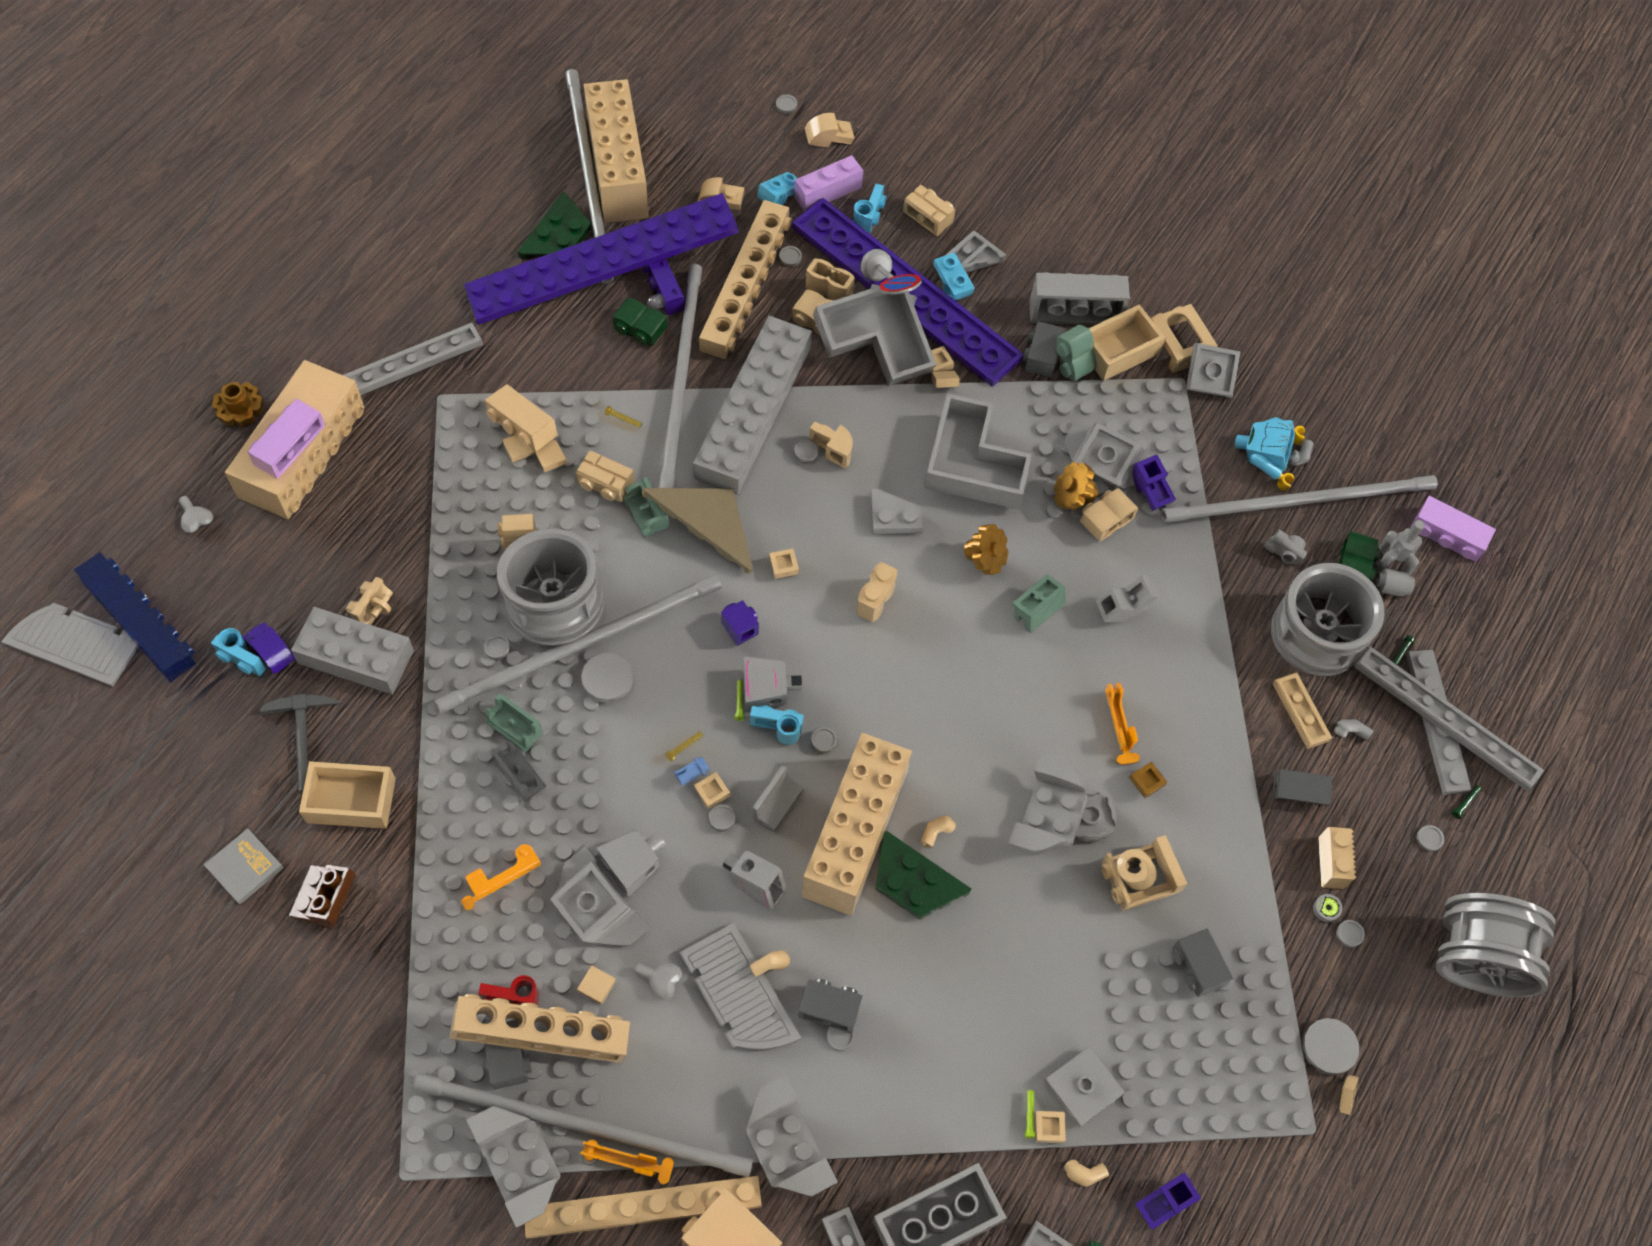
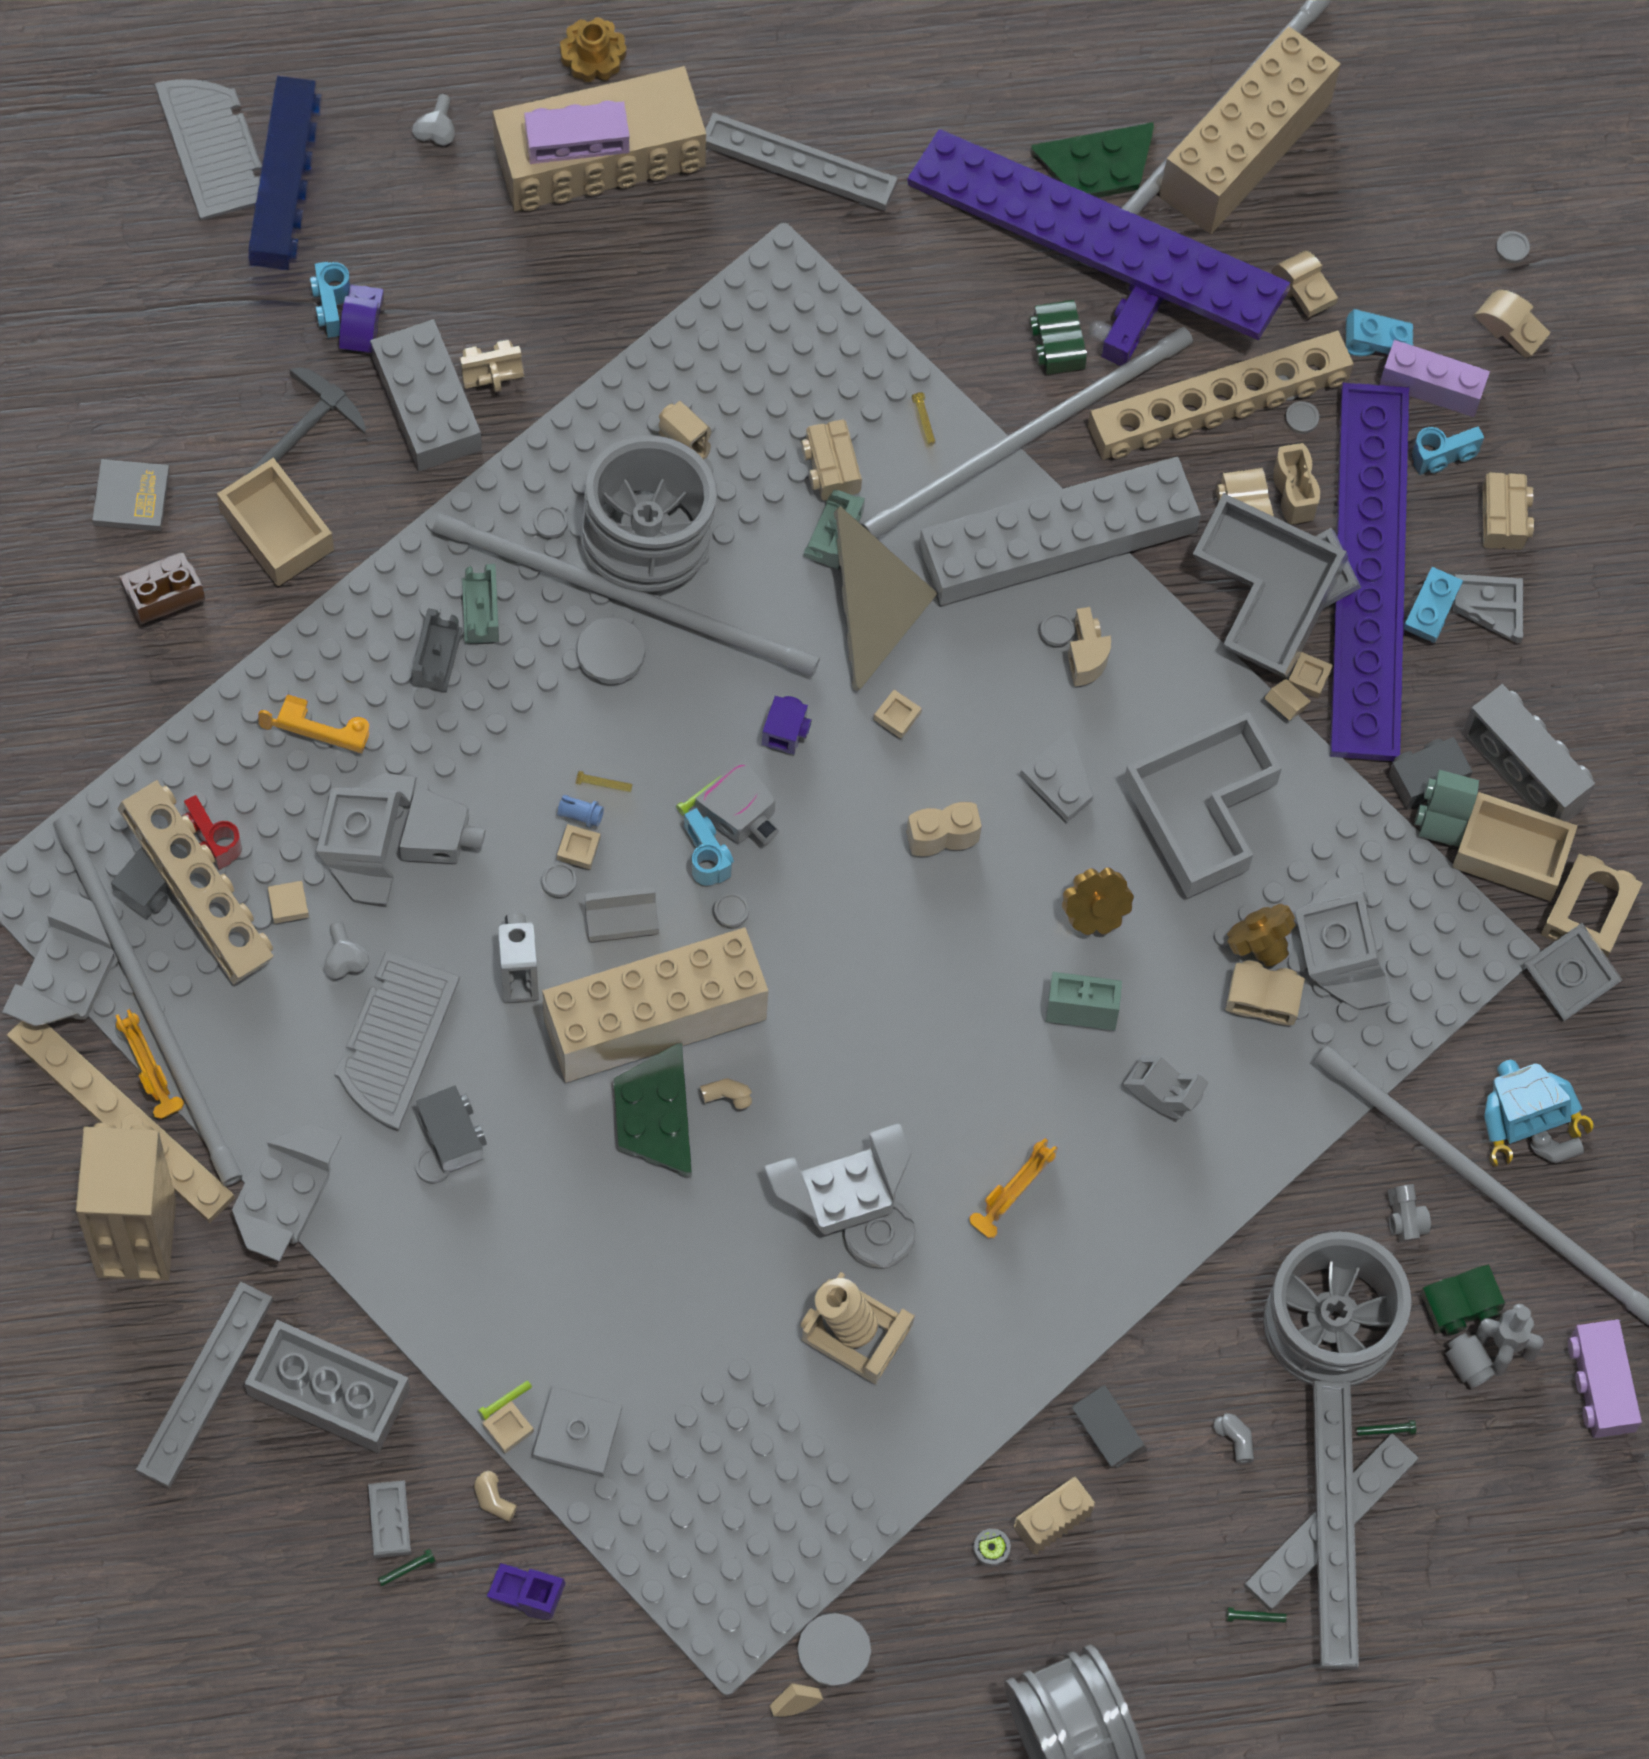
camera: 50 degrees right, 5 degrees up
(521, 418) = (819, 322): tan brick -> none
(549, 456) = (803, 355): tan tile -> none
(773, 961) = (448, 1040): tan arm -> none
(877, 266) = (1357, 514): light grey piece -> none
(1148, 780) = (971, 1259): pearl gold plate -> none
(1150, 479) = (1348, 1011): dark purple brick -> none
(1201, 963) = (807, 1452): dark grey brick -> none
(1302, 710) = (1212, 1368): tan tile -> none
(1350, 933) = (984, 1591): light grey piece -> none
(1430, 838) = (1175, 1605): light grey piece -> none

